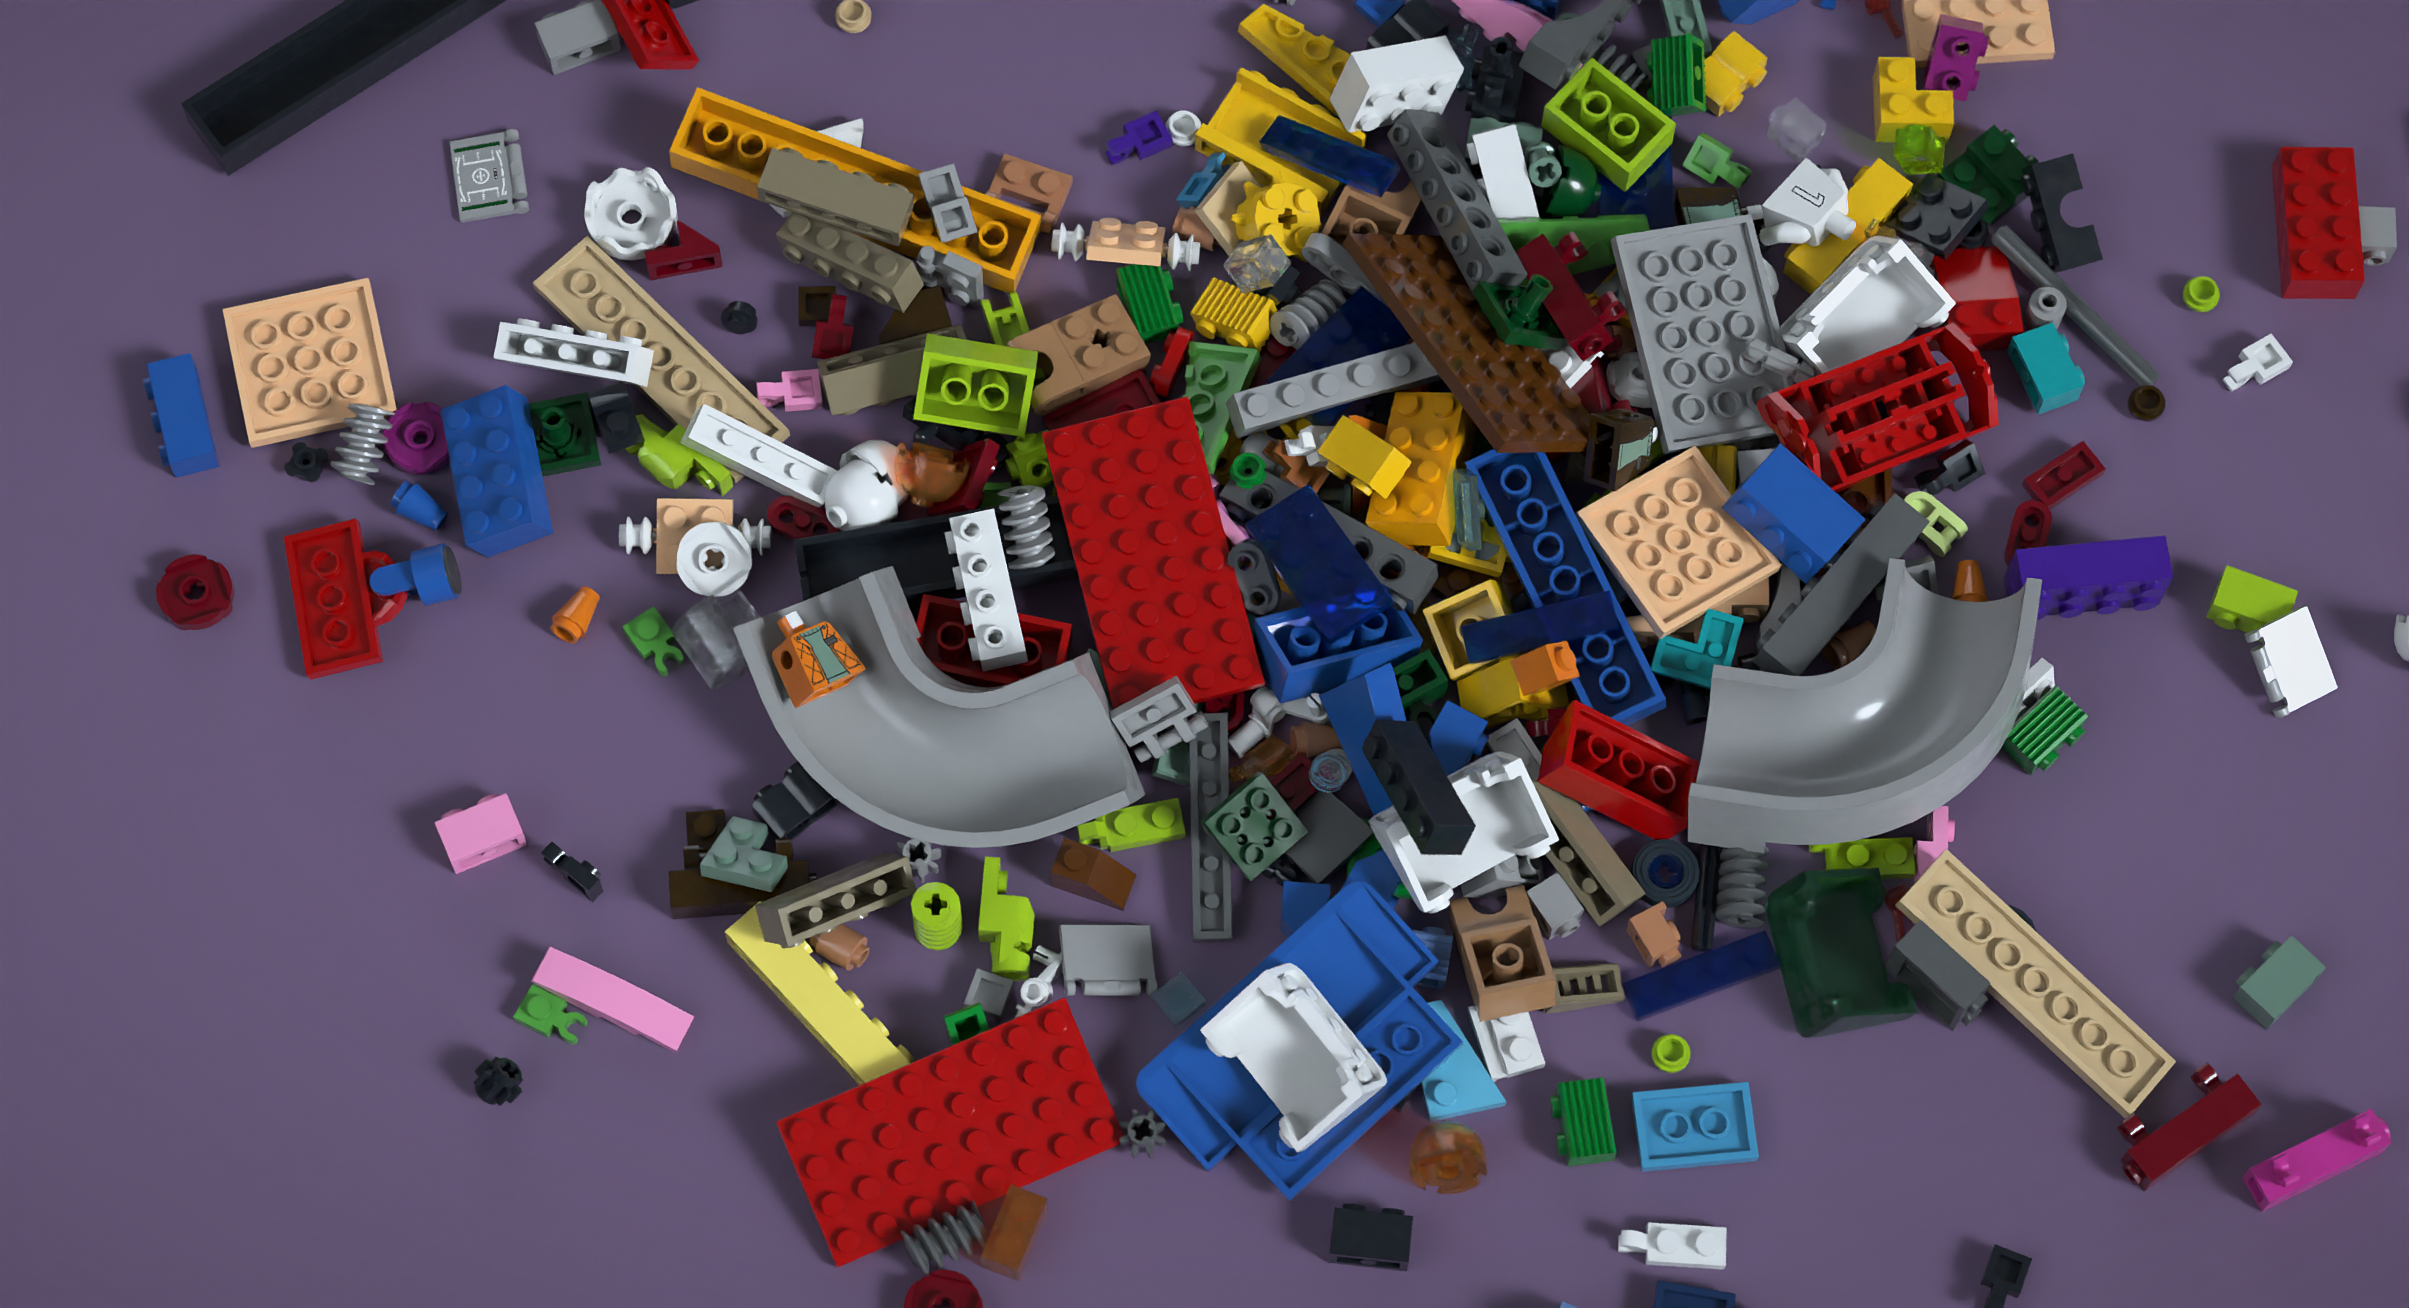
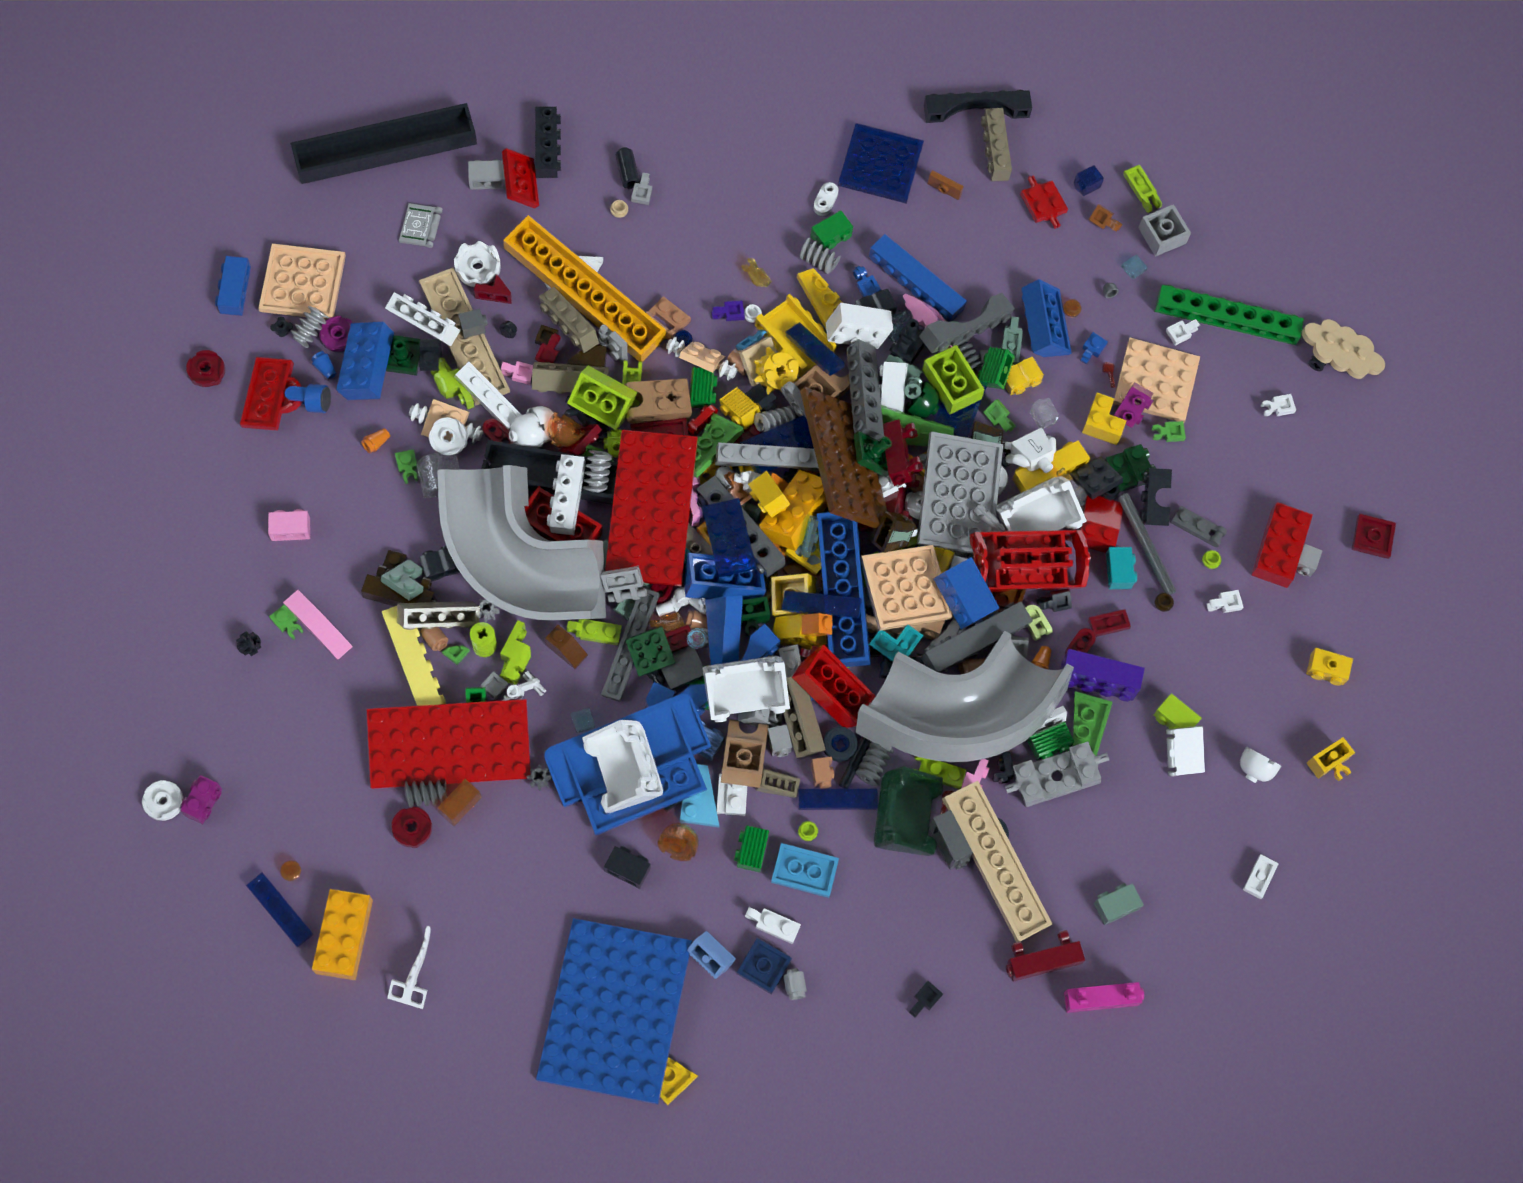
camera: 15 degrees right, 0 degrees up
(581, 876) = (327, 561): black plate -> none
(671, 329) = (472, 323): none -> dark grey brick
(813, 660) = (470, 498): orange torso -> none
(836, 196) = (570, 286): dark tan brick -> none
(891, 960) = (456, 653): none -> bright green tile
(947, 203) = (623, 308): light grey slope -> none
(1072, 216) = (684, 335): none -> clear blue plate
(1107, 959) = (556, 689): light grey piece -> none
(1165, 52) = (757, 274): none -> clear yellow plate
(1244, 462) = (713, 477): green plate -> none
(1257, 263) = (757, 386): clear brick -> none
(1257, 577) = (696, 533): black plate -> none
(1418, 787) = (729, 659): black brick -> none
(1919, 142) = (1101, 439): clear neon green brick -> none
(1981, 805) = (1005, 765): none -> black bracket
(2038, 81) = (1171, 431): none -> bright green plate
(2045, 307) = (1131, 538): light grey brick -> none
(2101, 680) = (1090, 720): none -> bright green wing
(2111, 759) = (1078, 769): none -> light grey brick
(2154, 241) = (1198, 526): none -> dark grey plate

